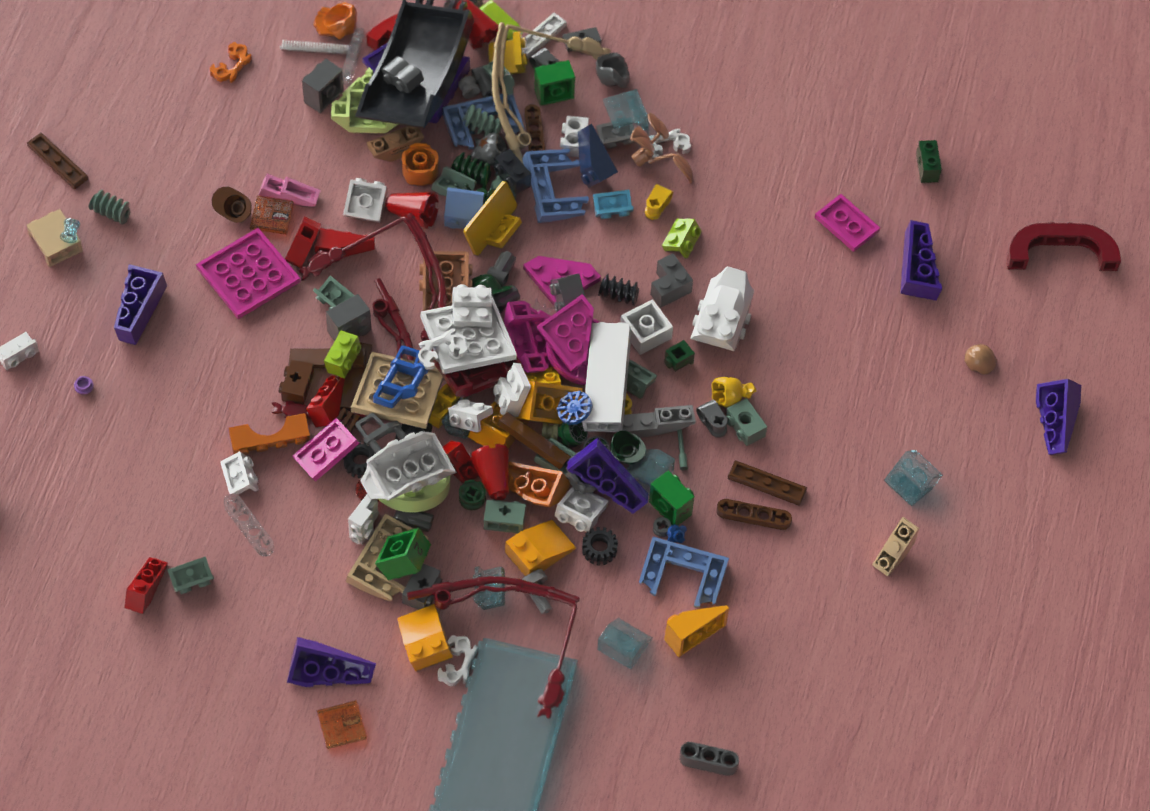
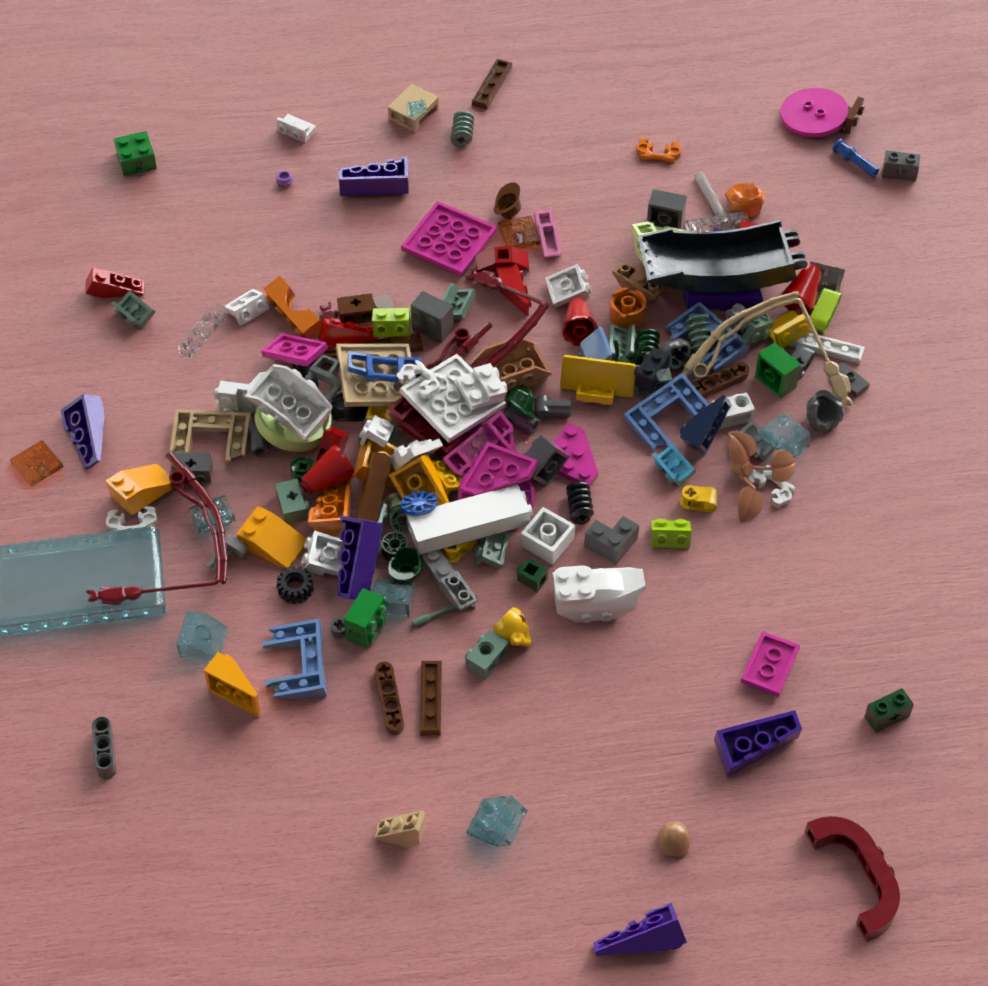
camera: 70 degrees right, 5 degrees down
(402, 74) = (702, 252): dark grey brick -> none
(403, 554) = (209, 436): green brick -> none
(674, 530) = (335, 635): blue plate -> none
(713, 418) = (478, 625): dark grey piece -> none

